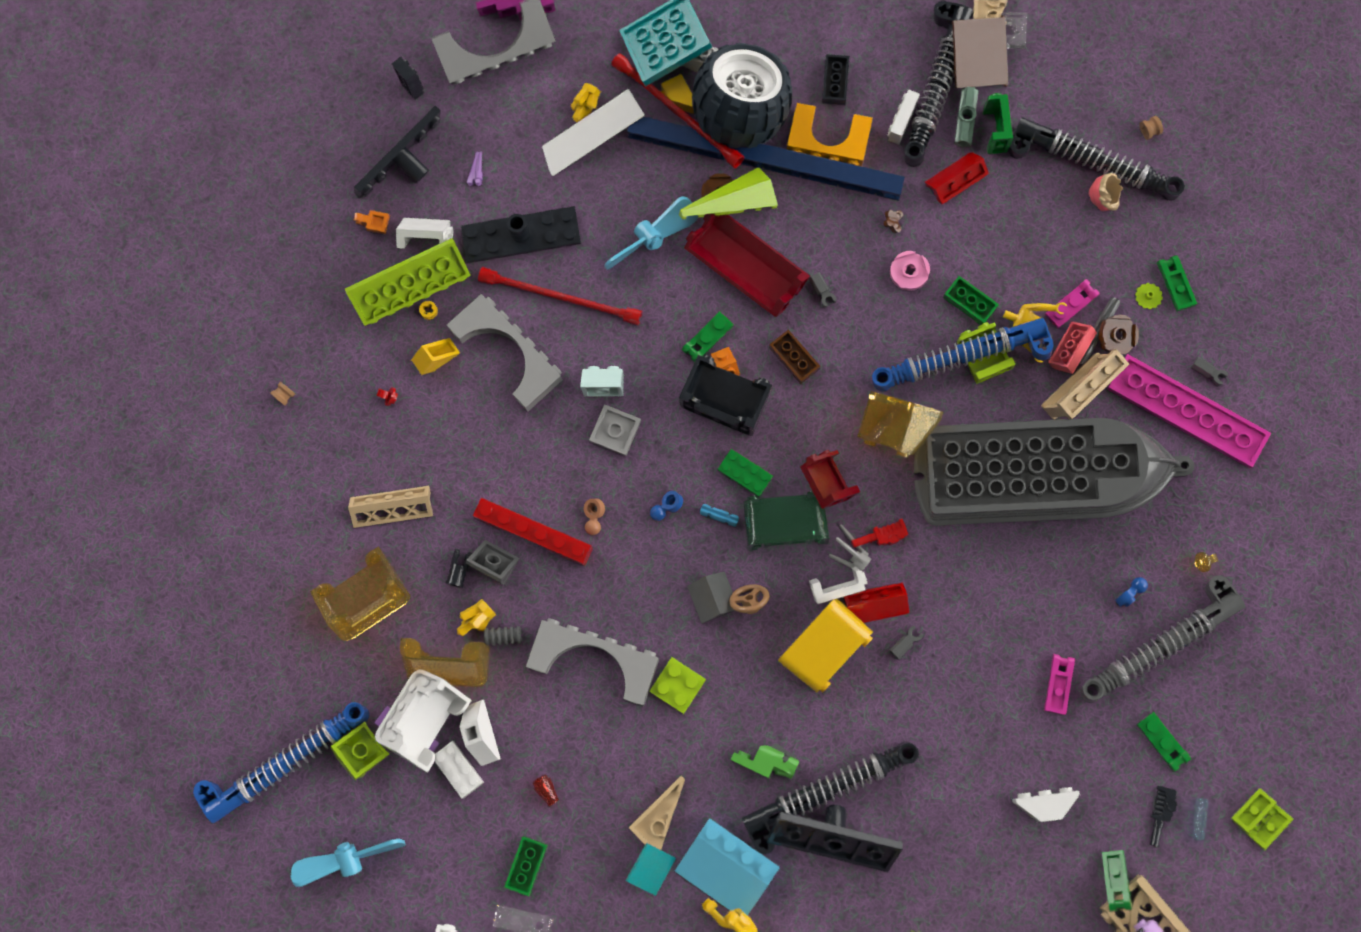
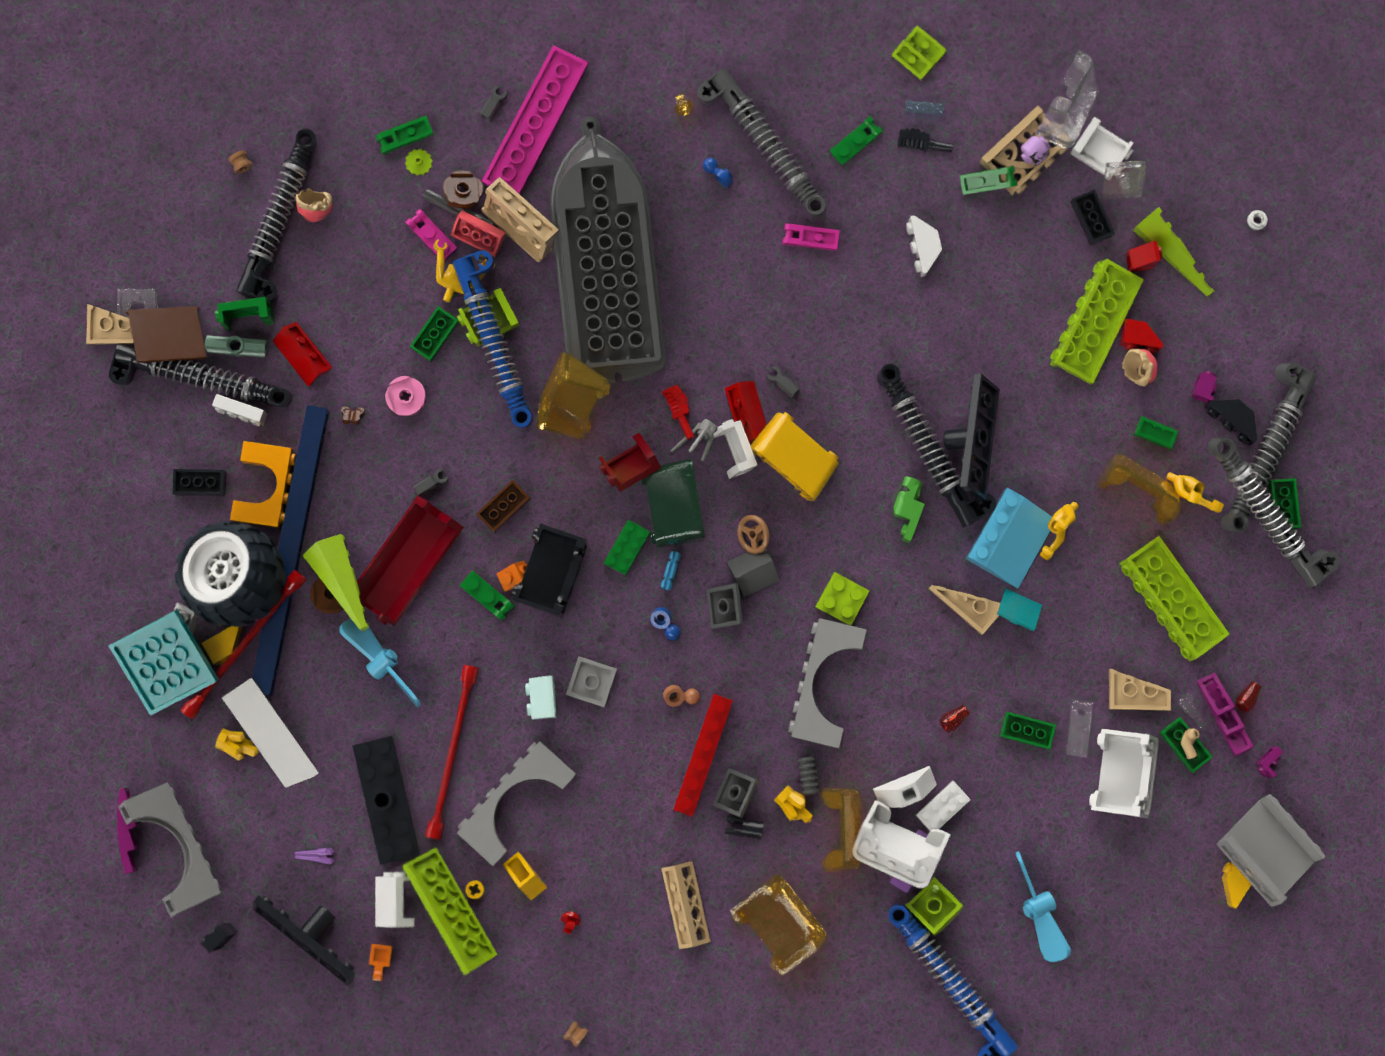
camera: 110 degrees left, 5 degrees up
(678, 565) = (724, 606): none -> dark grey slope

